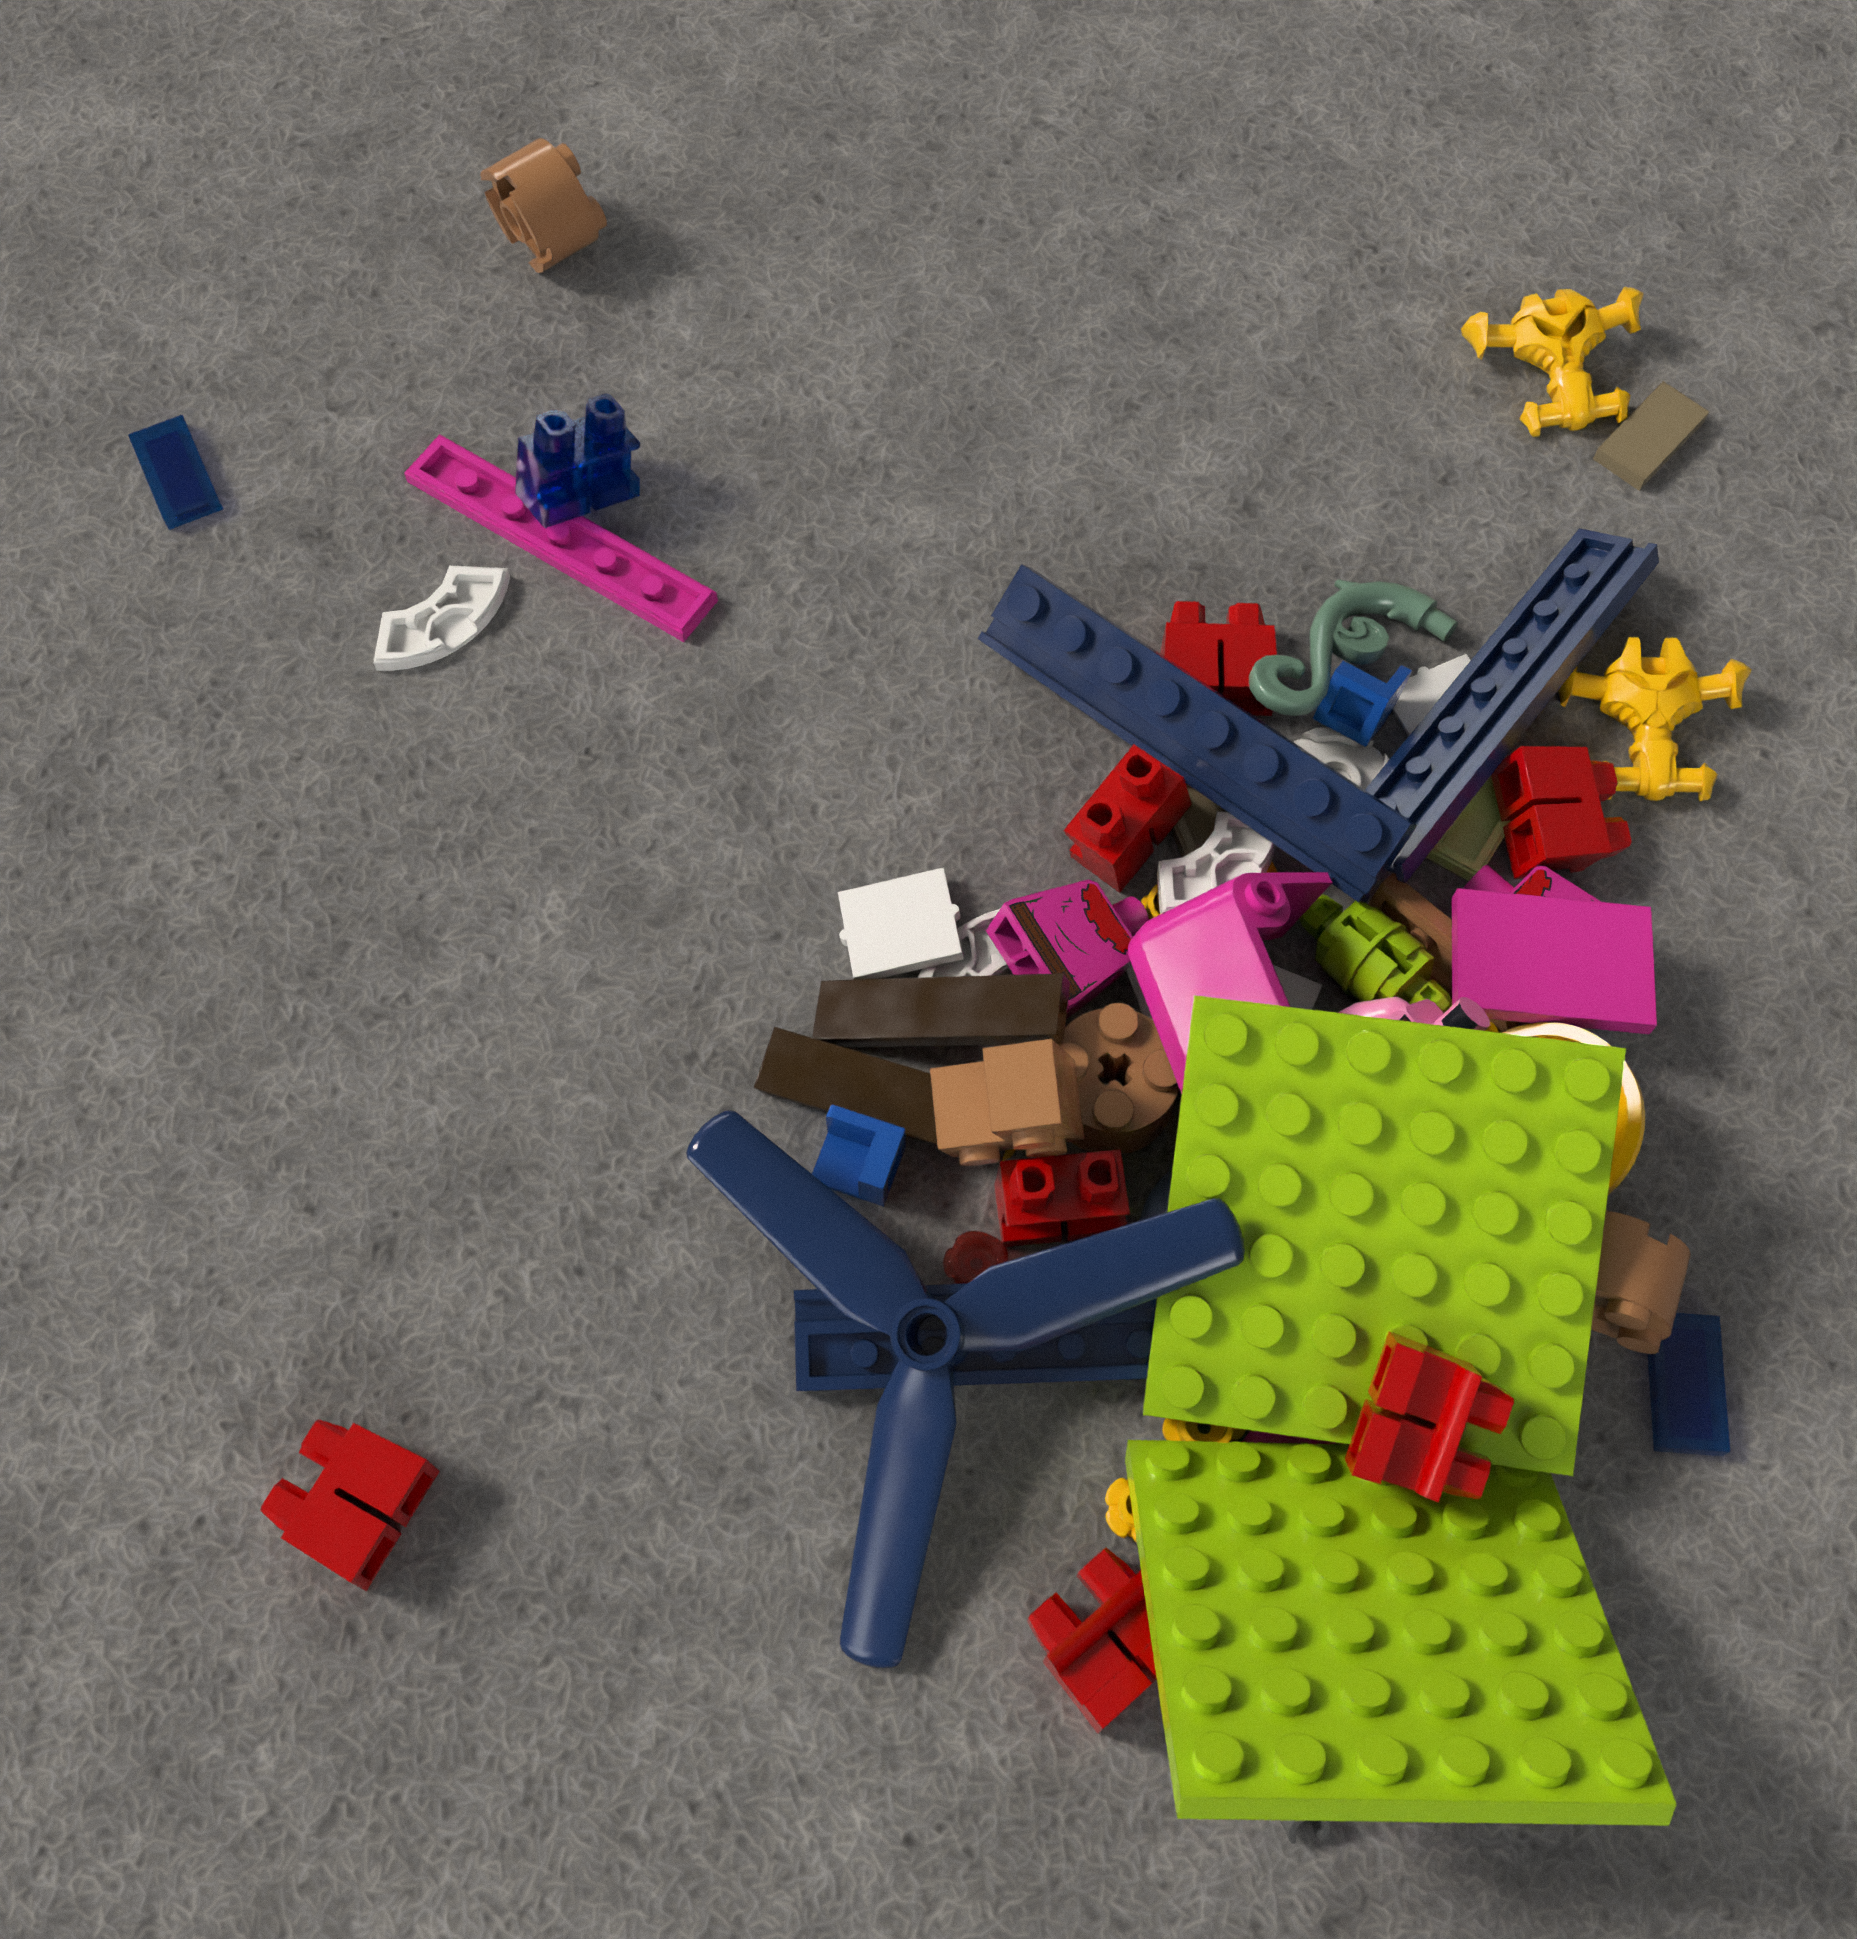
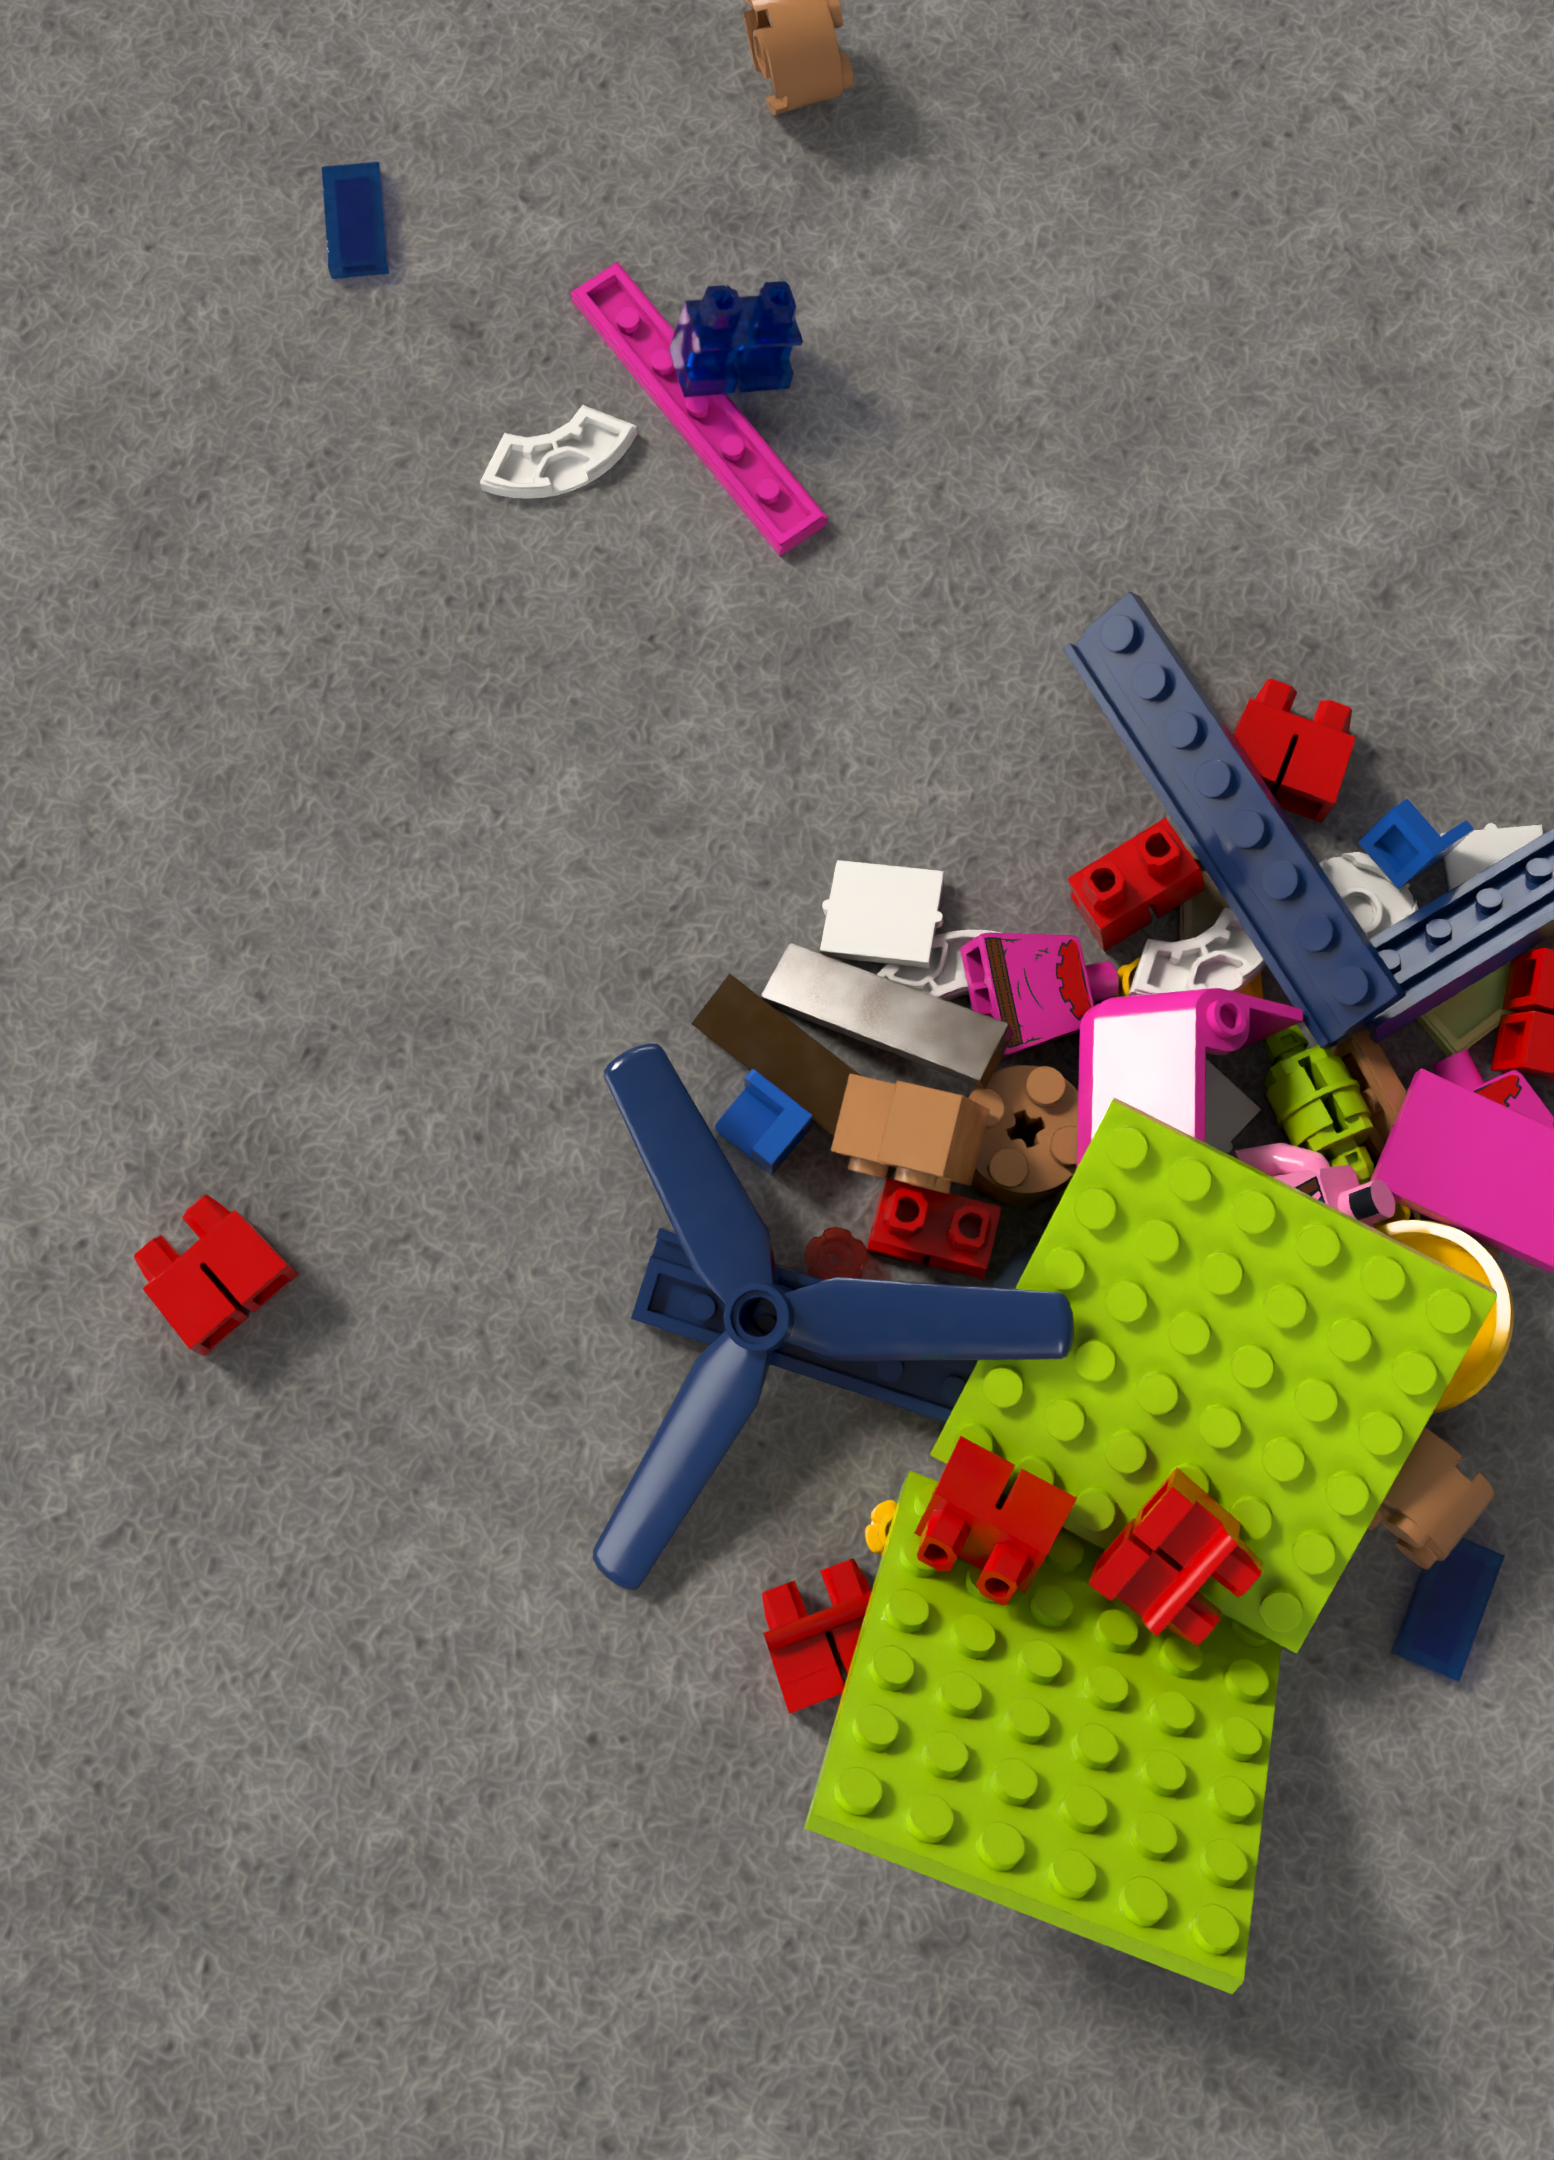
camera: 20 degrees right, 10 degrees up
(1245, 1467) = (1002, 1542): none -> red hips
(1359, 644) = (1430, 785): sand green plant -> none

